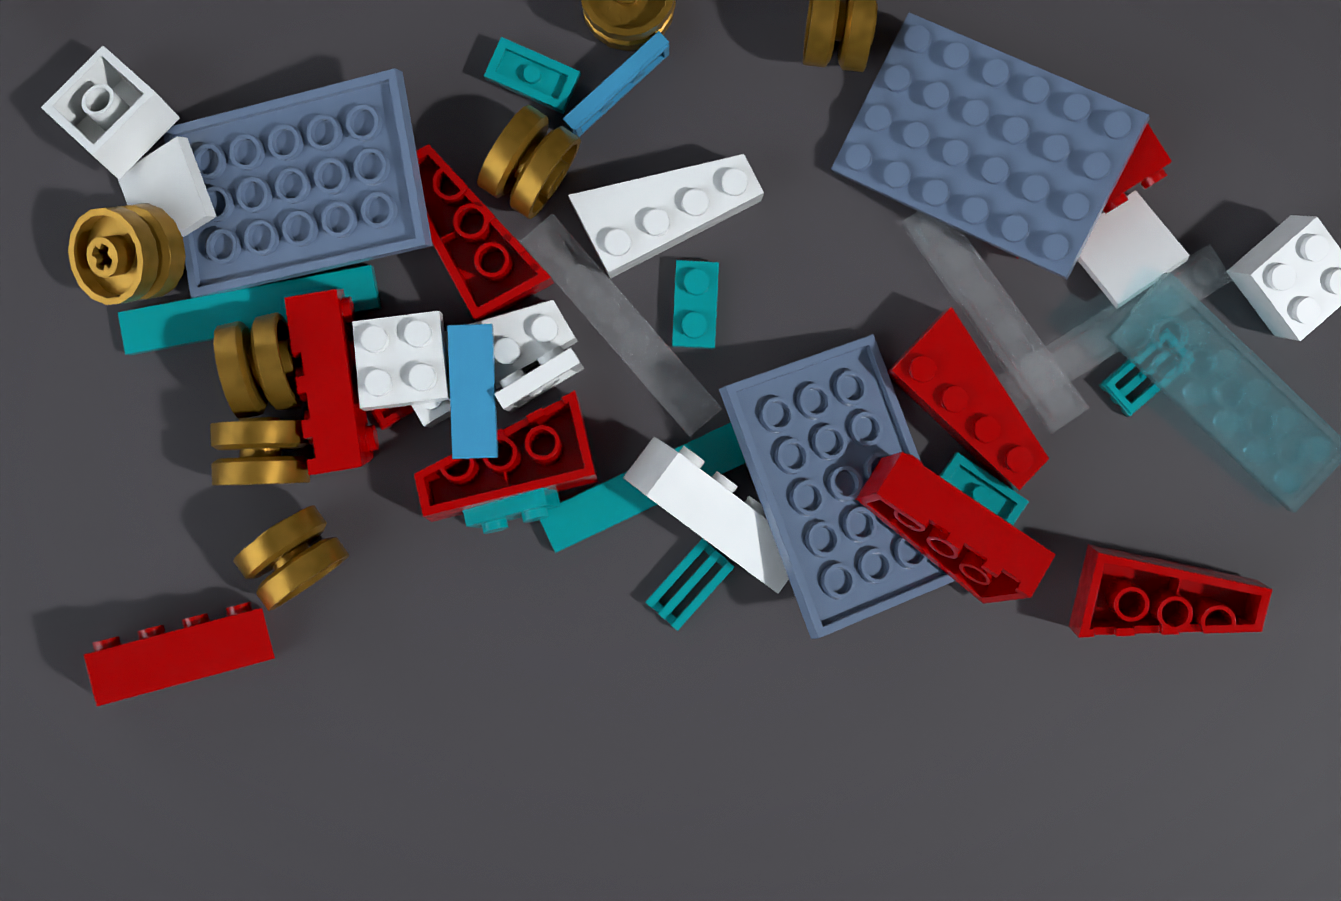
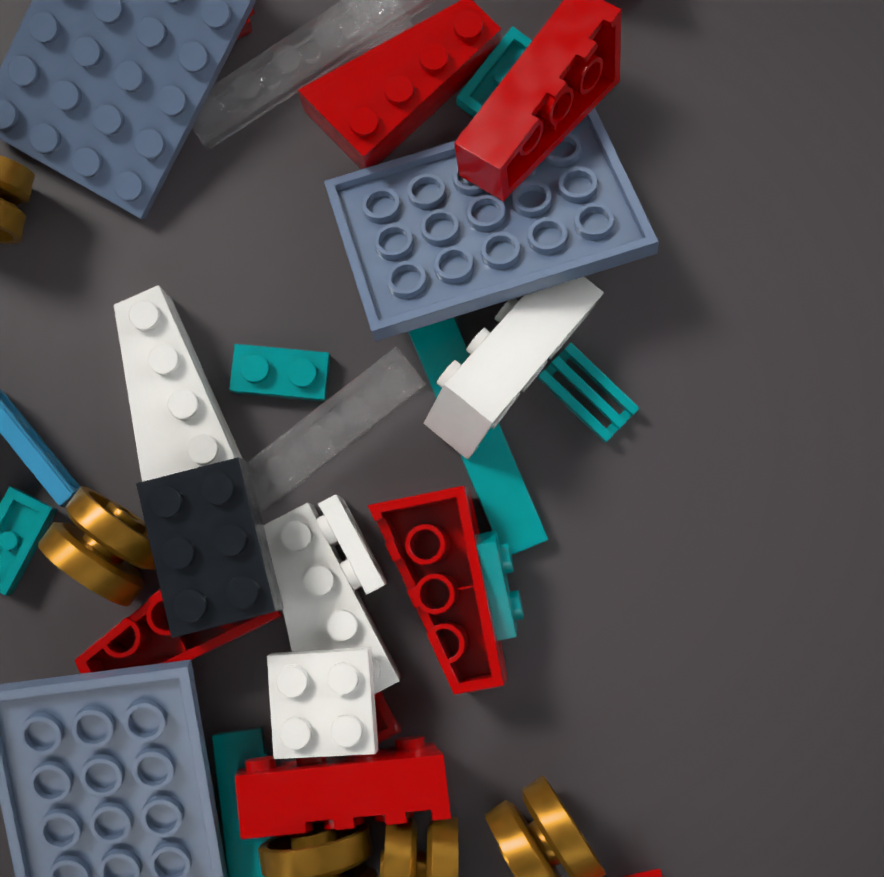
camera: 90 degrees left, 5 degrees down
(472, 391) = (362, 620): dark azure tile -> none
(527, 257) = (209, 546): none -> black brick

